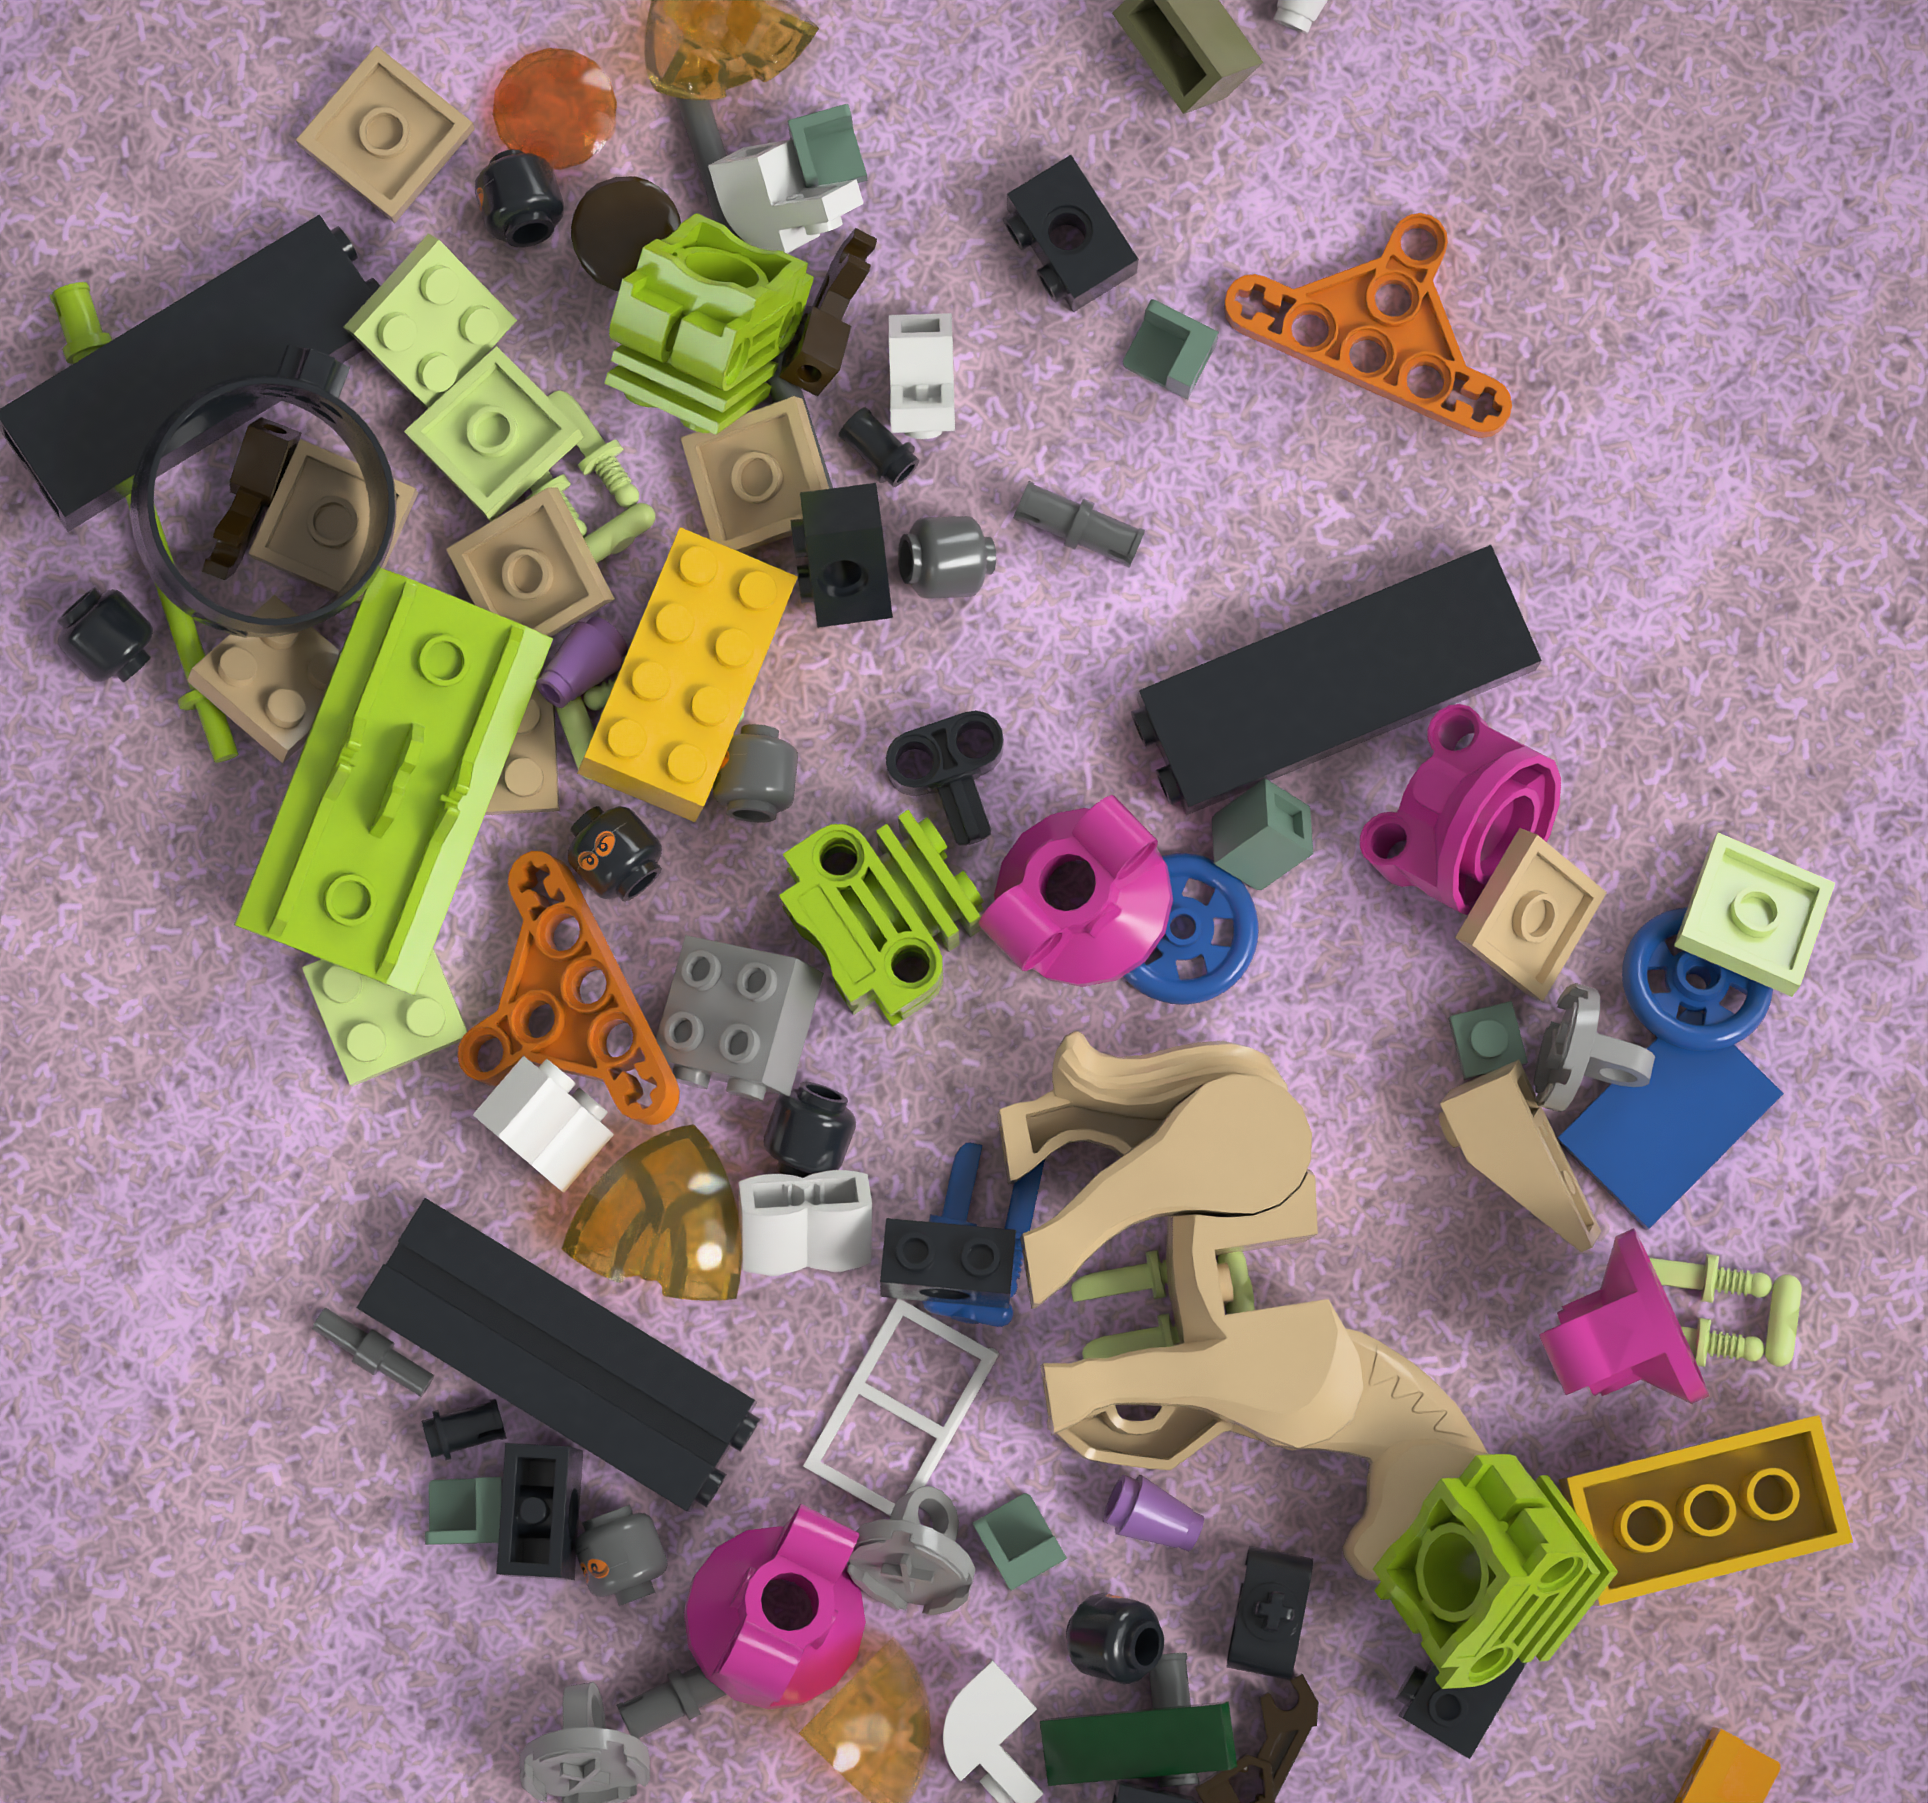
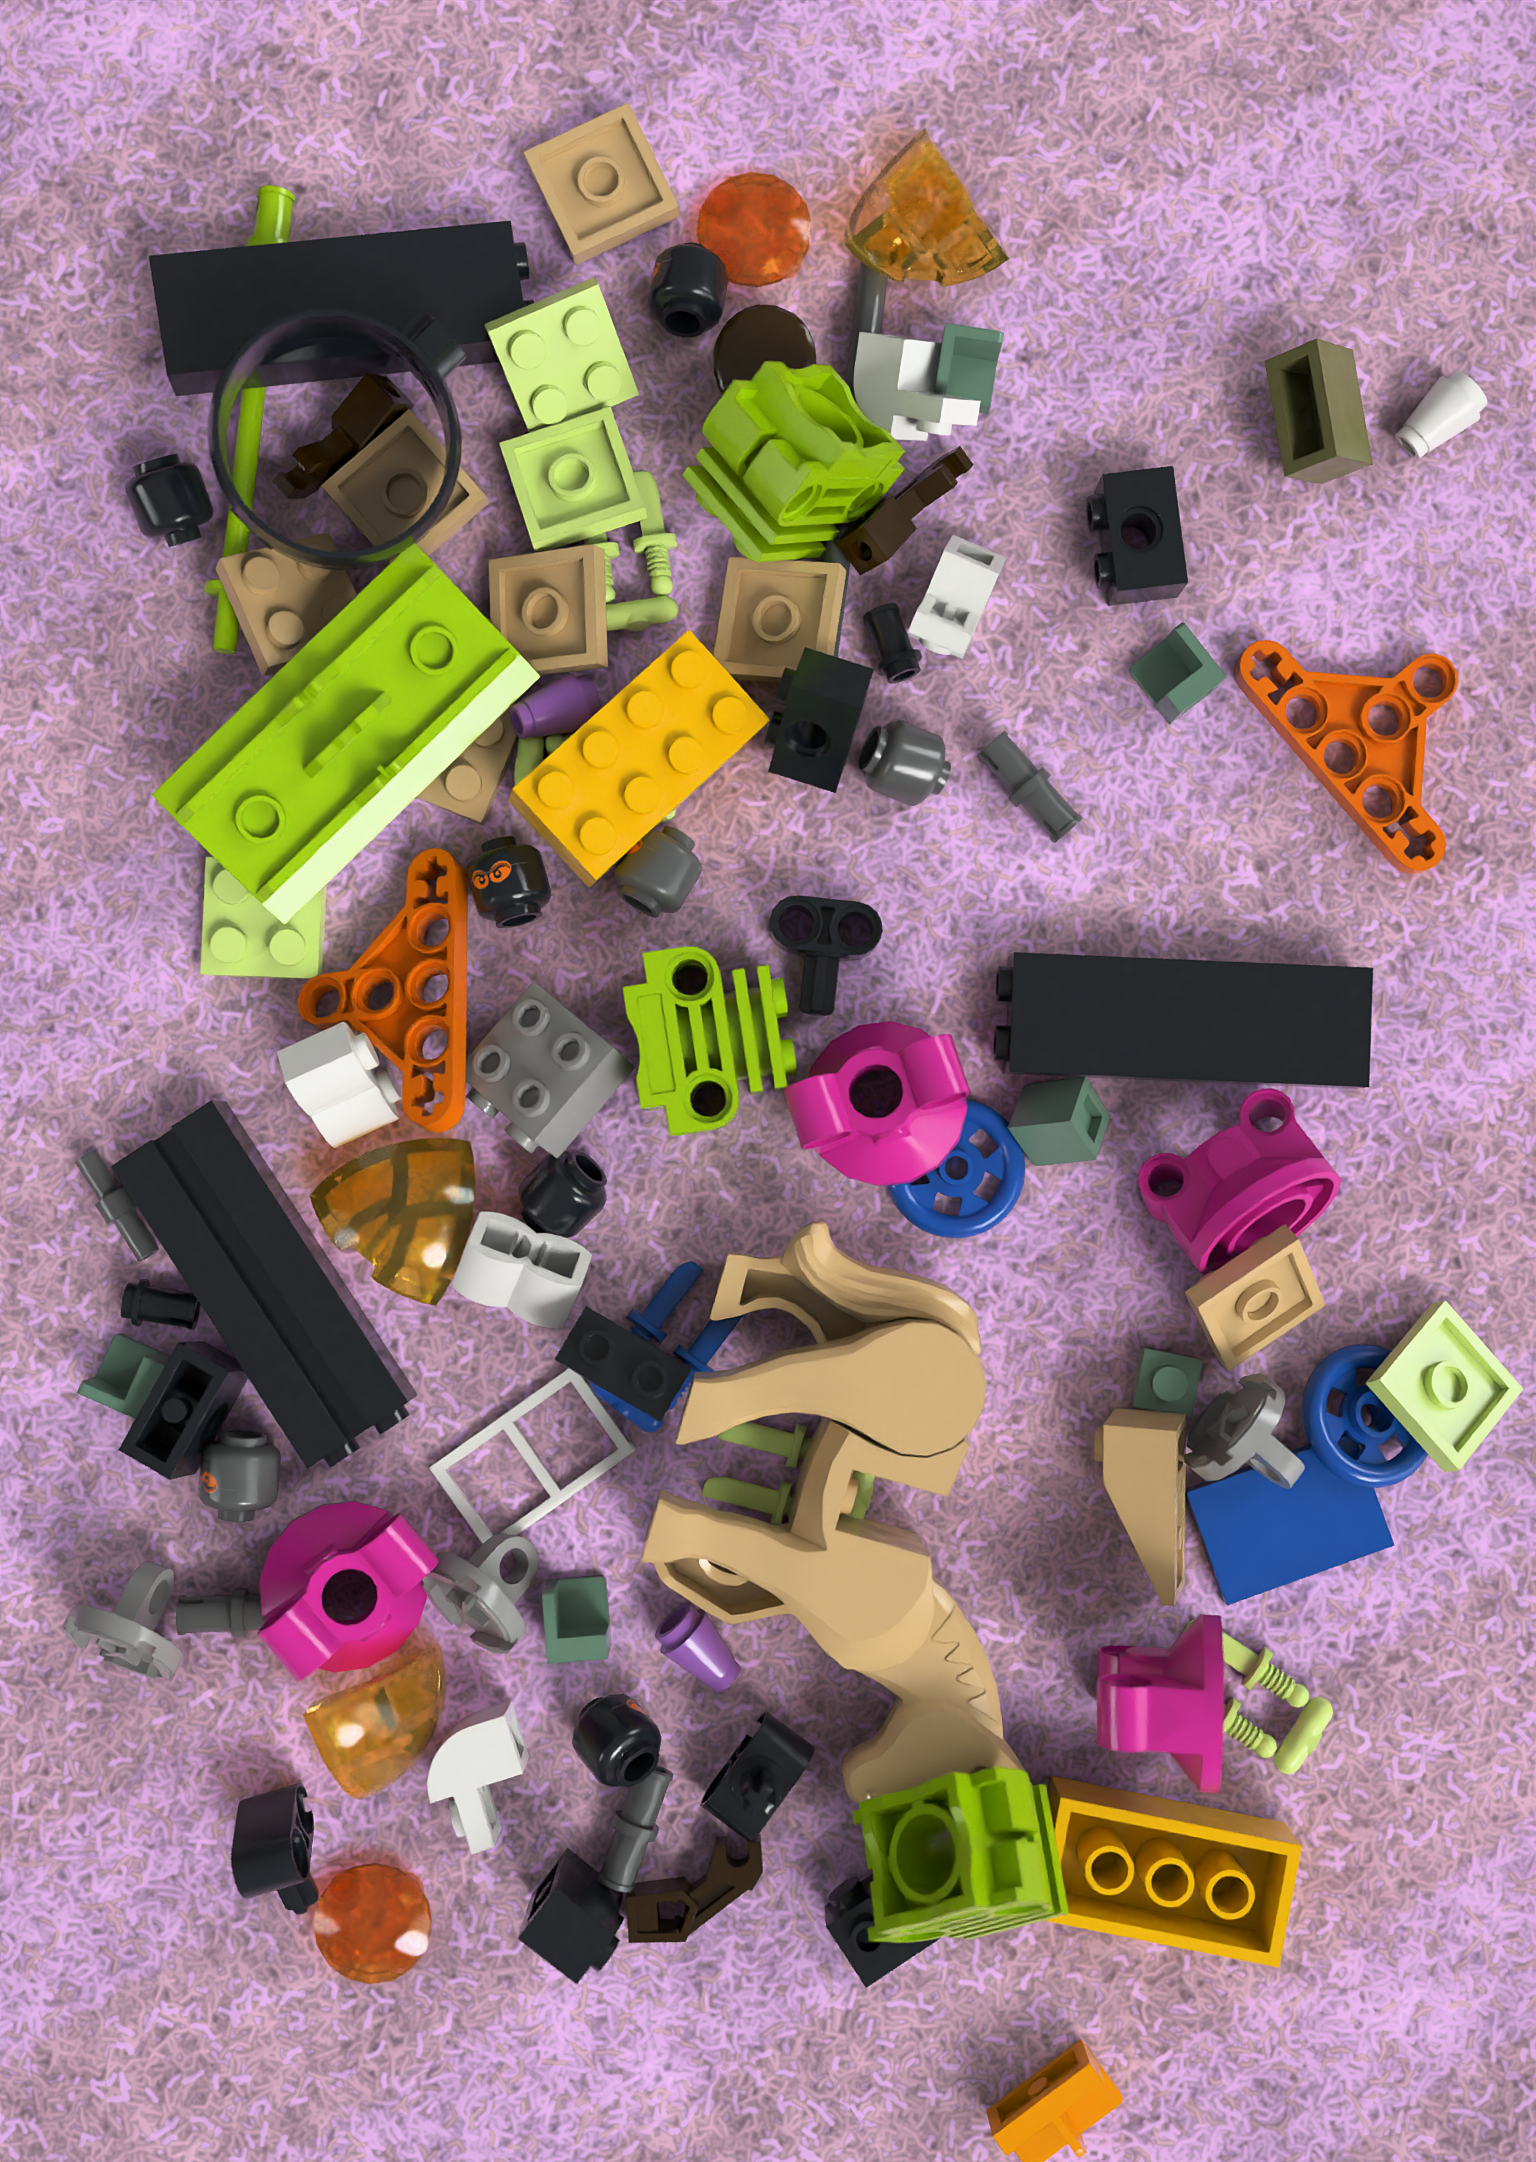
camera: 25 degrees right, 5 degrees up
(1138, 1744) = (595, 1840): dark green tile -> none

